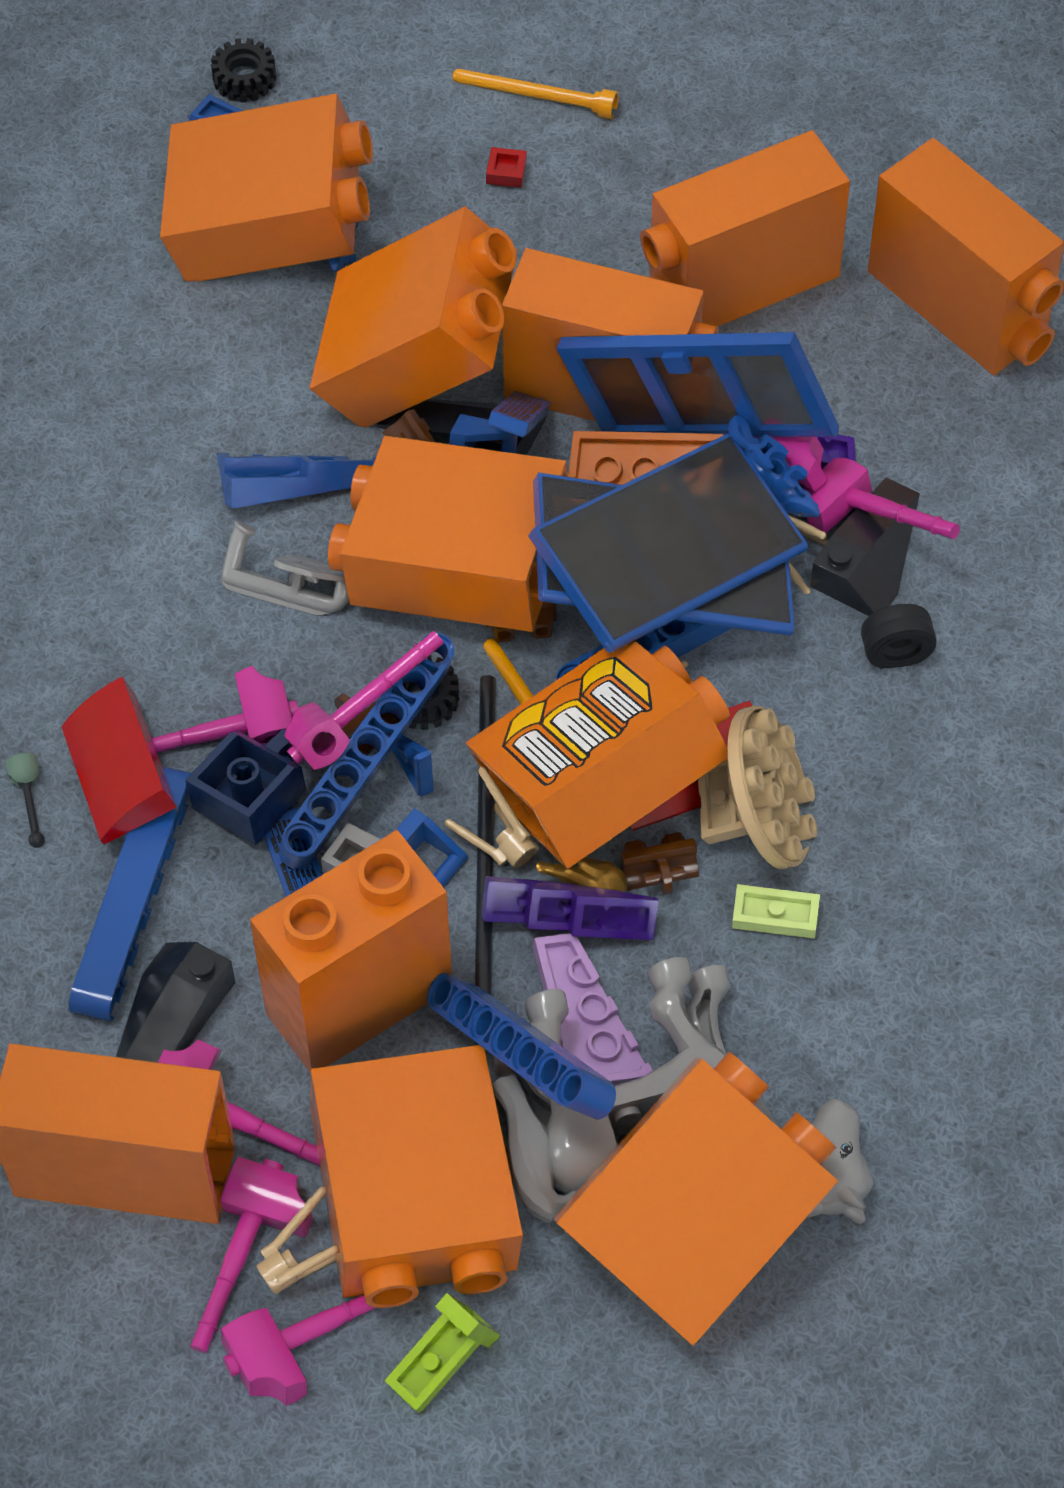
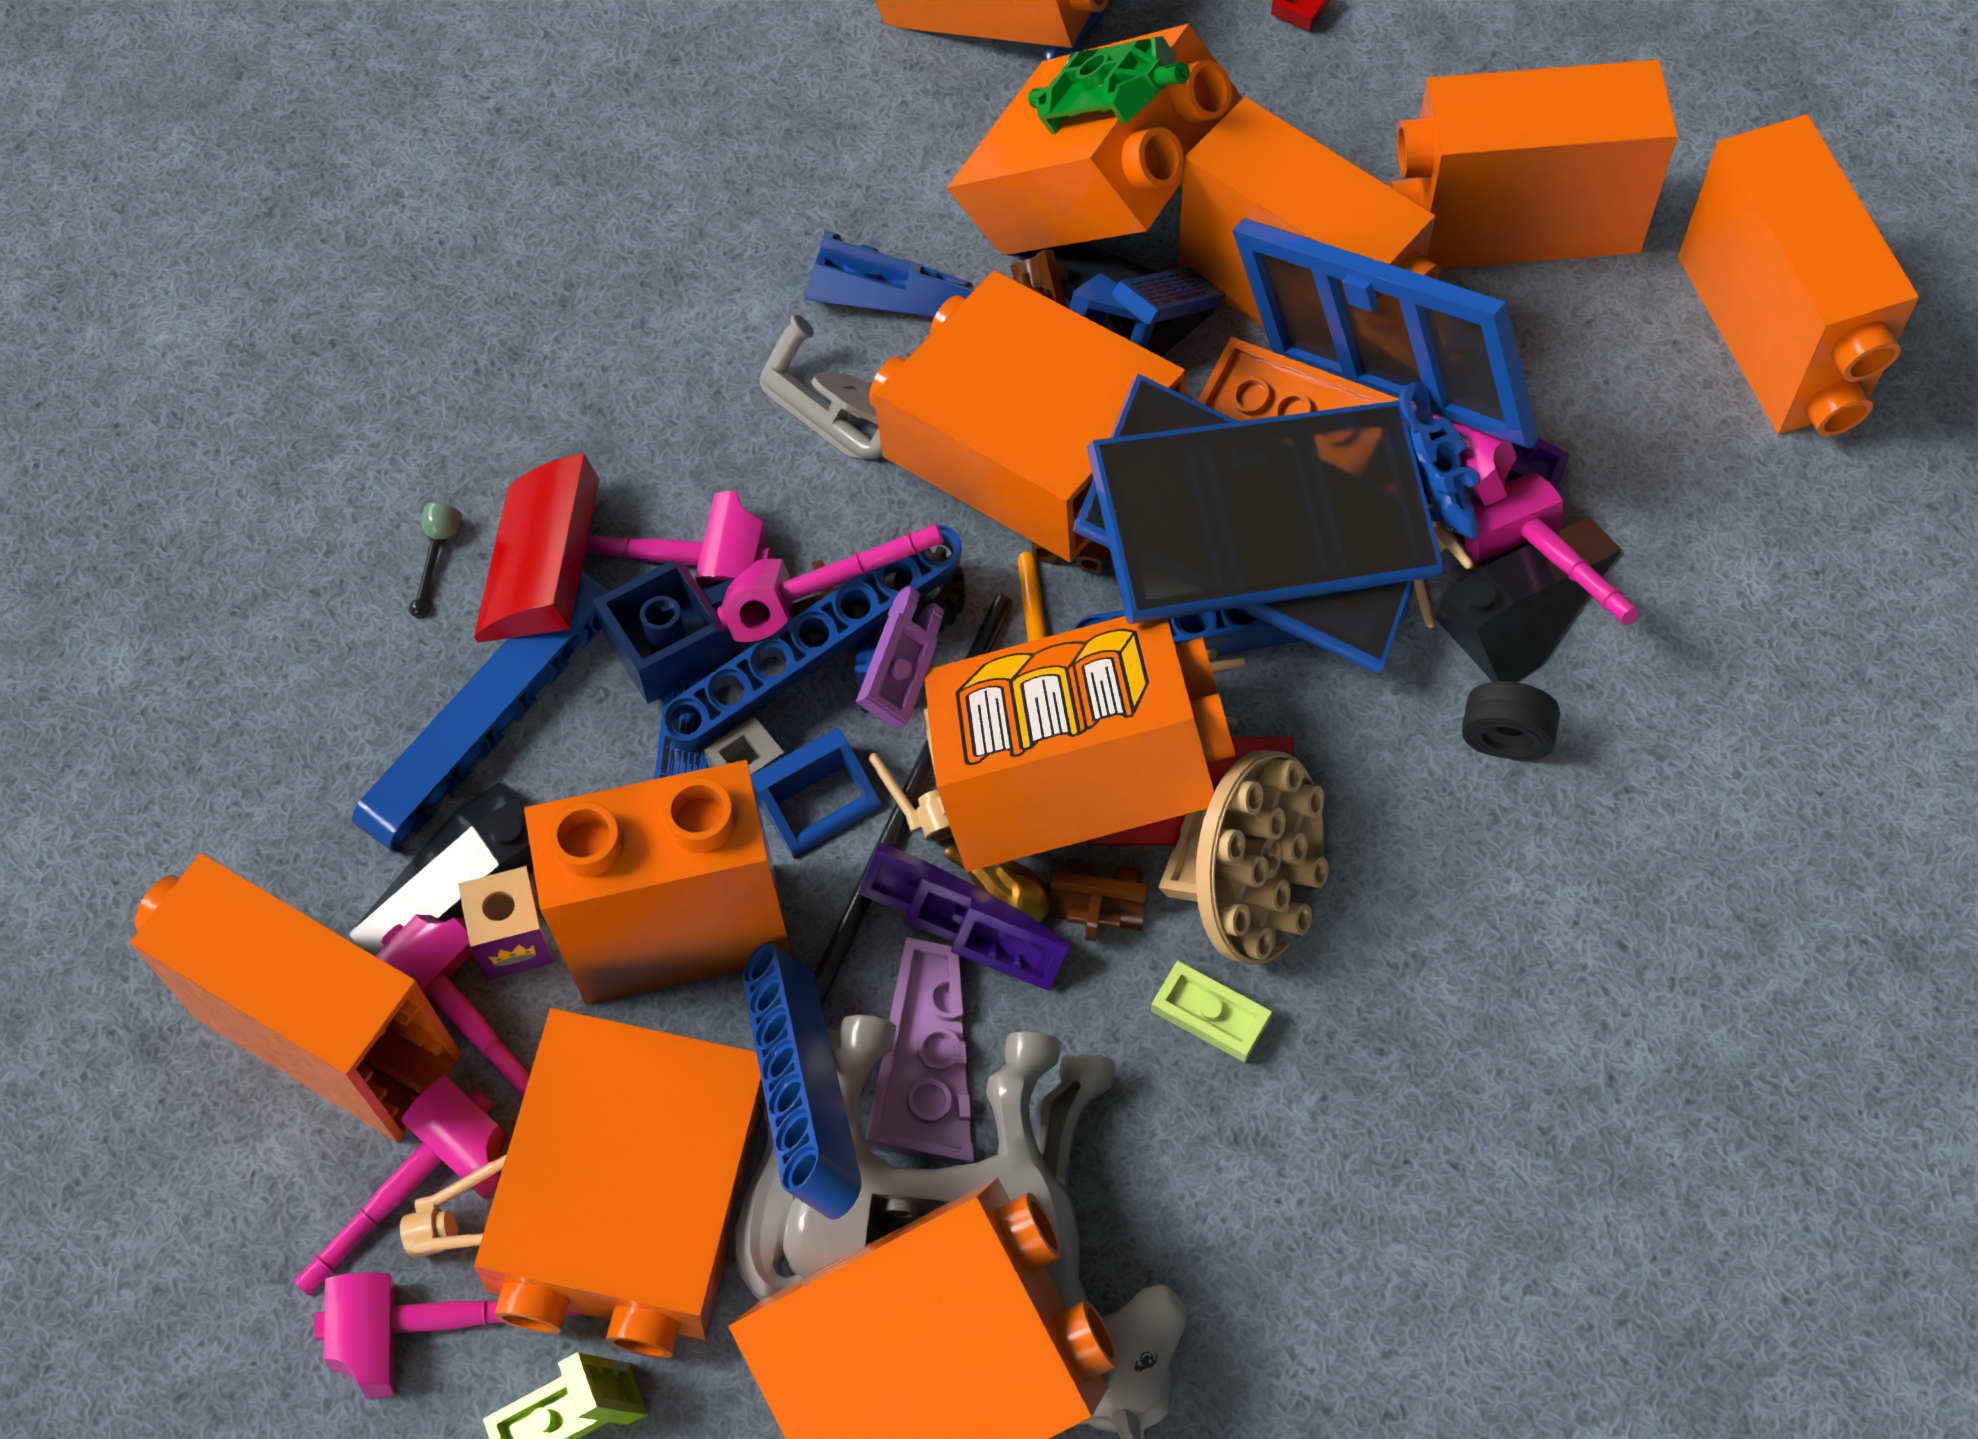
camera: 25 degrees right, 5 degrees up
(240, 1047) = (506, 944): none -> tan piece
(421, 266) = (1107, 79): none -> green plate
(447, 738) = (900, 660): none -> medium lavender hinge

